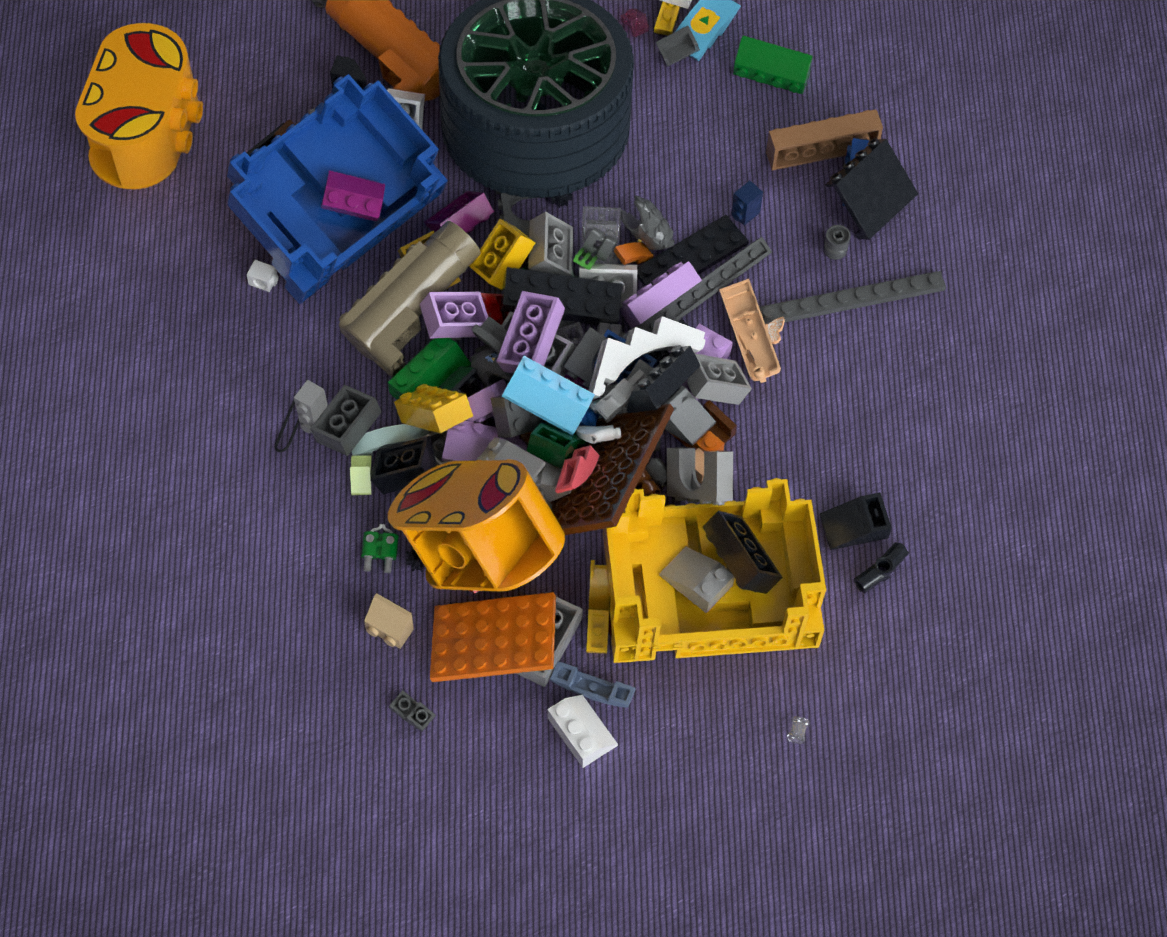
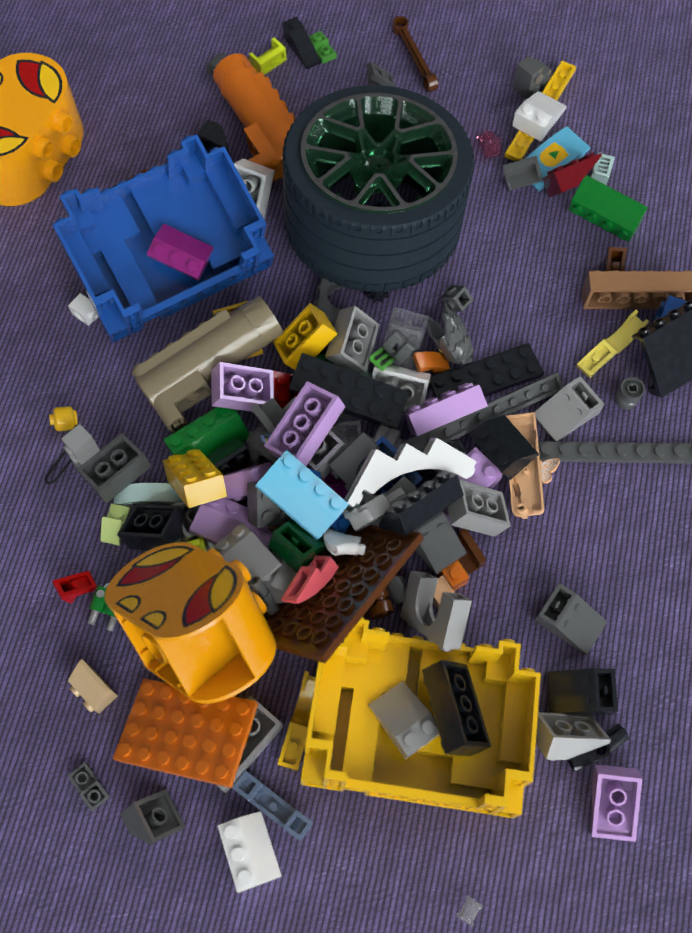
camera: 15 degrees right, 5 degrees up
(277, 386) = (63, 418): none -> yellow head
(341, 537) = (74, 585): none -> red slope
(464, 211) = (282, 290): magenta slope -> none
(481, 720) = (153, 818): none -> dark grey slope
(643, 184) = (456, 298): none -> dark grey brick
(726, 38) = (569, 175): none -> dark red slope
(726, 315) = (504, 445): none -> black slope
(746, 203) = (551, 336): dark blue brick -> none
(759, 34) = (599, 176): none -> light aqua slope
(781, 269) = (569, 409): none -> light grey slope
(792, 113) = (615, 258): none -> reddish brown slope
(808, 201) = (611, 346): none -> light yellow piece
(829, 461) = (571, 619): none -> dark grey slope
(850, 560) = (568, 735): none -> light grey slope
(908, 610) = (615, 802): none -> lavender slope

